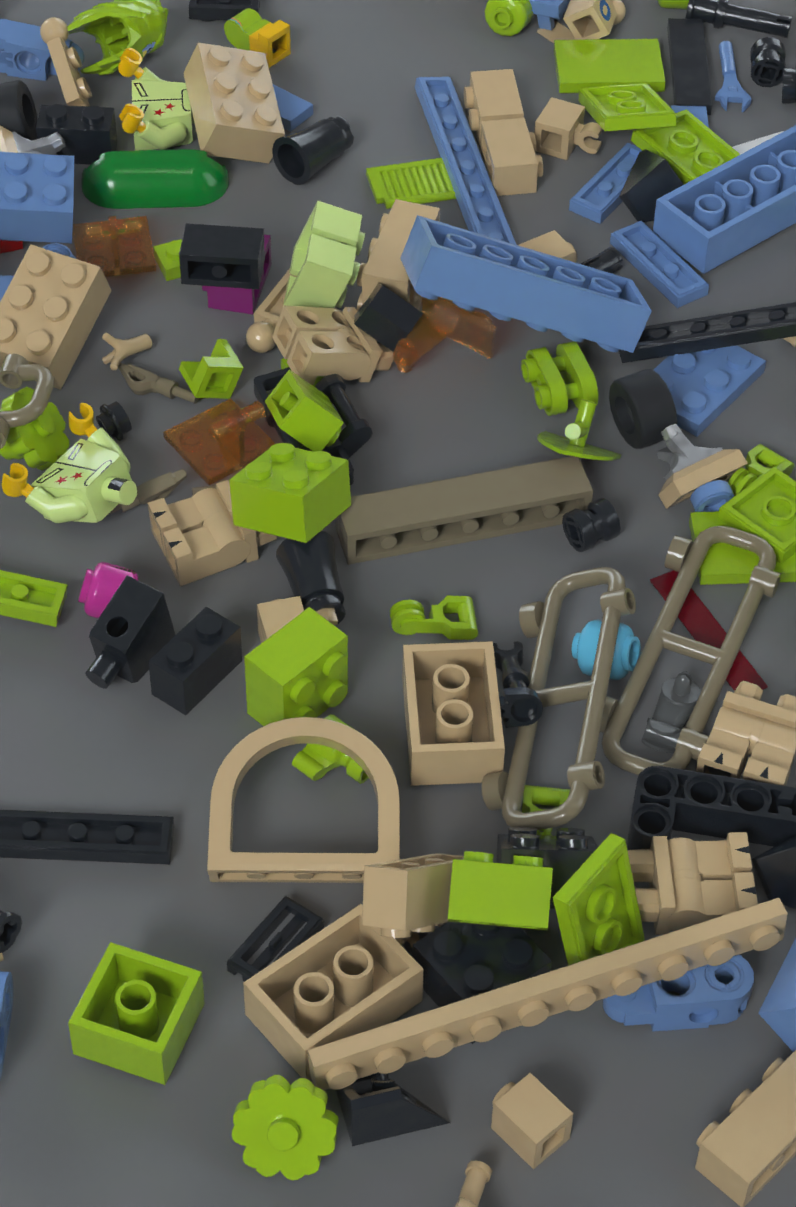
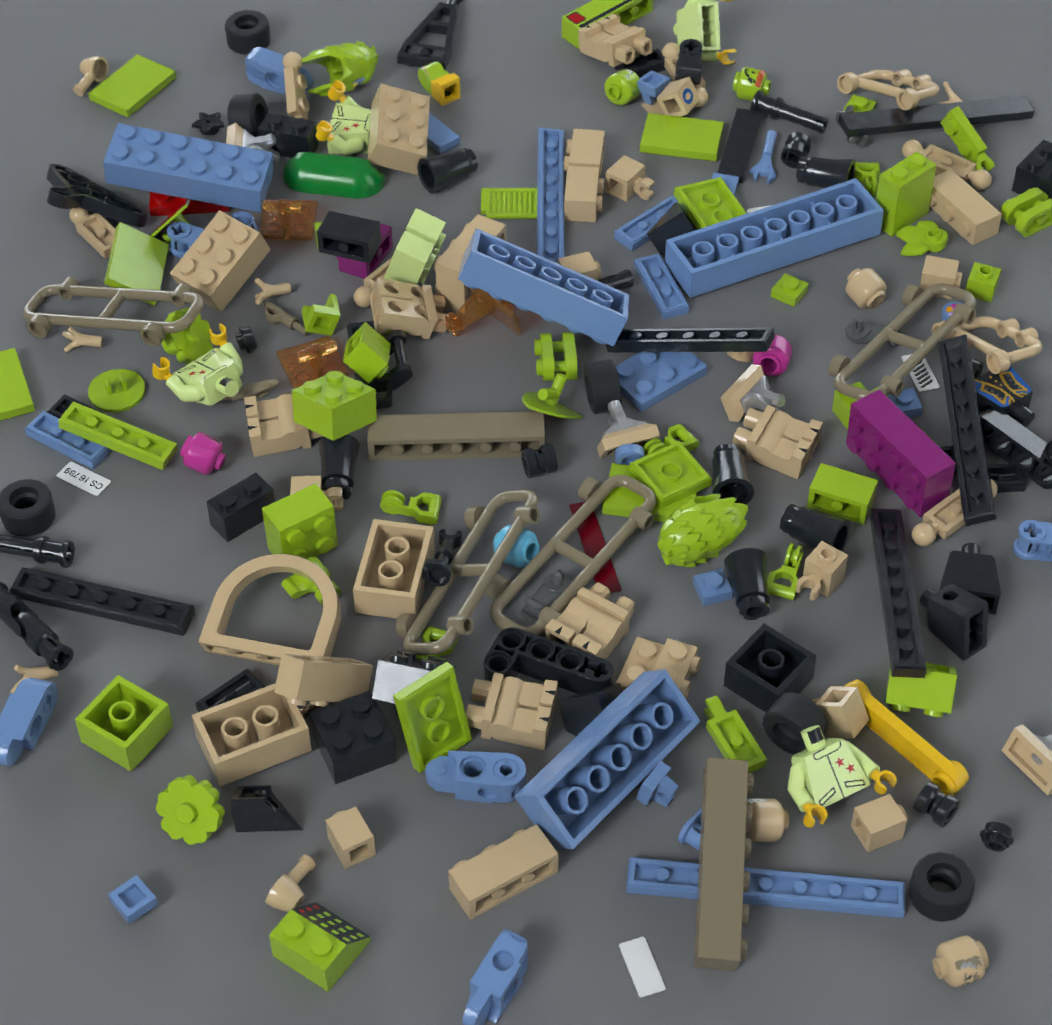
camera: 15 degrees right, 0 degrees up
(129, 633) = (201, 480): black torso -> none
(386, 317) = (446, 295): black piece -> none
(500, 892) = (366, 687): lime brick -> none
(536, 998) = (383, 759): tan plate -> none
(626, 107) = (677, 169): lime tile -> none

